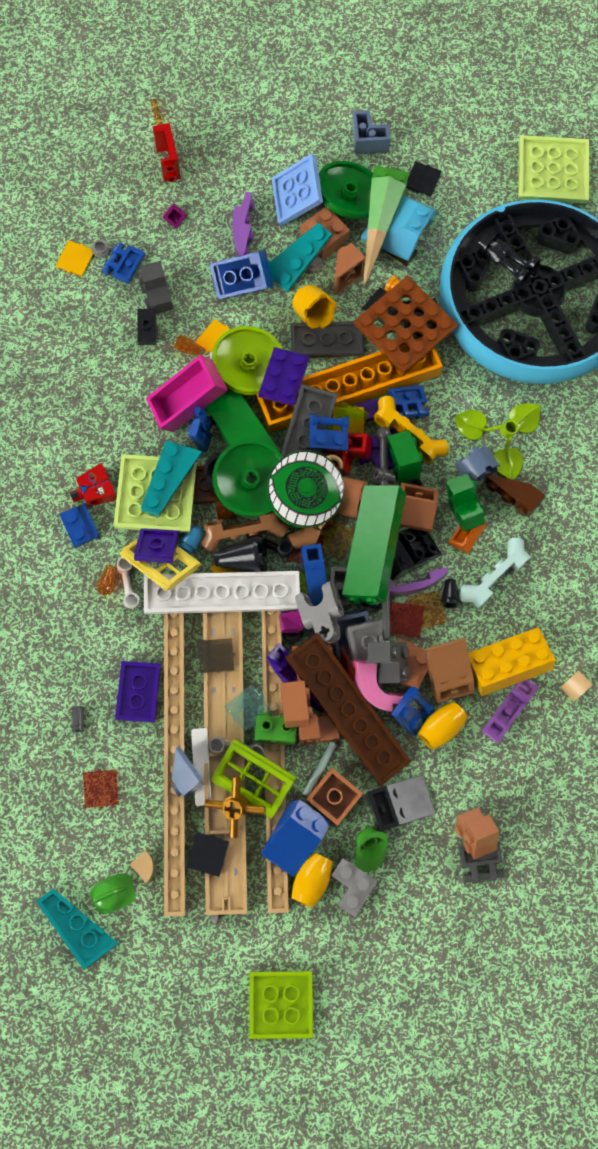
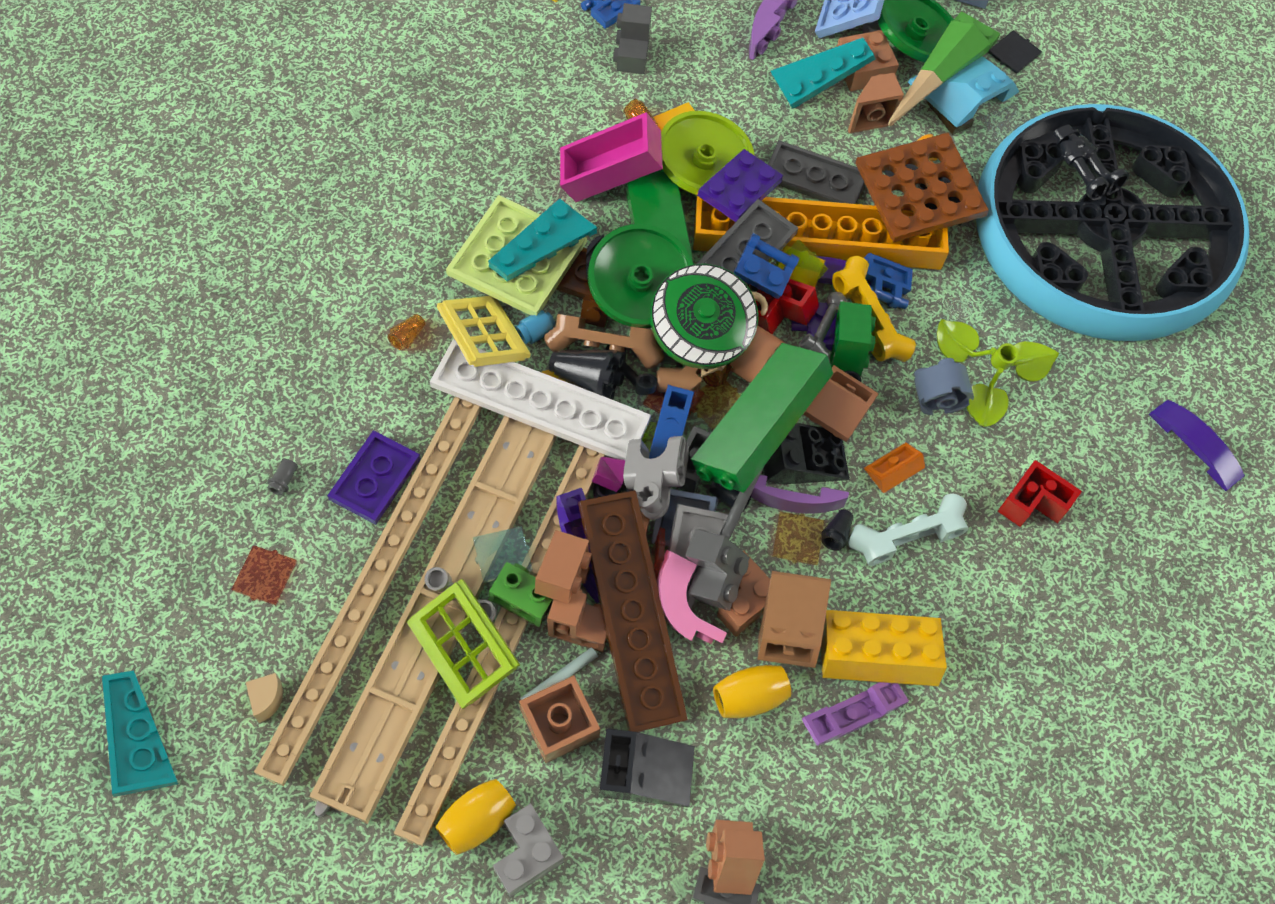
camera: 20 degrees right, 10 degrees down
(79, 525) = (407, 258): blue plate -> none
(94, 487) = (447, 221): red torso -> none
(113, 893) = (207, 715): bright green piece -> none
(131, 599) = (424, 363): white bar -> none
(147, 327) = (602, 76): black brick -> none
(156, 545) = (486, 311): dark purple plate -> none
(185, 775) = (375, 597): slope -> none
(200, 429) = (609, 206): blue plate -> none
(200, 757) = (409, 588): white sticker -> none
(208, 854) = (354, 716): black piece -> none
(216, 655) = (494, 472): clear smoke piece -> none
(240, 802) = (420, 658): pearl gold bar -> none
(241, 274) = (744, 63): blue slope -> none
(295, 837) = (480, 746): blue slope -> none
(314, 306) = (816, 128): yellow cylinder -> none
(316, 265) = (839, 90): light grey plate -> none
(370, 849) = (576, 812): bright green piece -> none
(406, 619) = (763, 537): clear red piece -> none
(408, 715) = (710, 655): blue plate -> none
(464, 502) = (907, 422): green brick -> none
(519, 494) = (987, 448): reddish brown slope -> none
(553, 169) = (1188, 96): yellowish green plate -> none
(565, 511) = (1041, 491): none -> red brick
(576, 685) = (962, 721): tan brick -> none

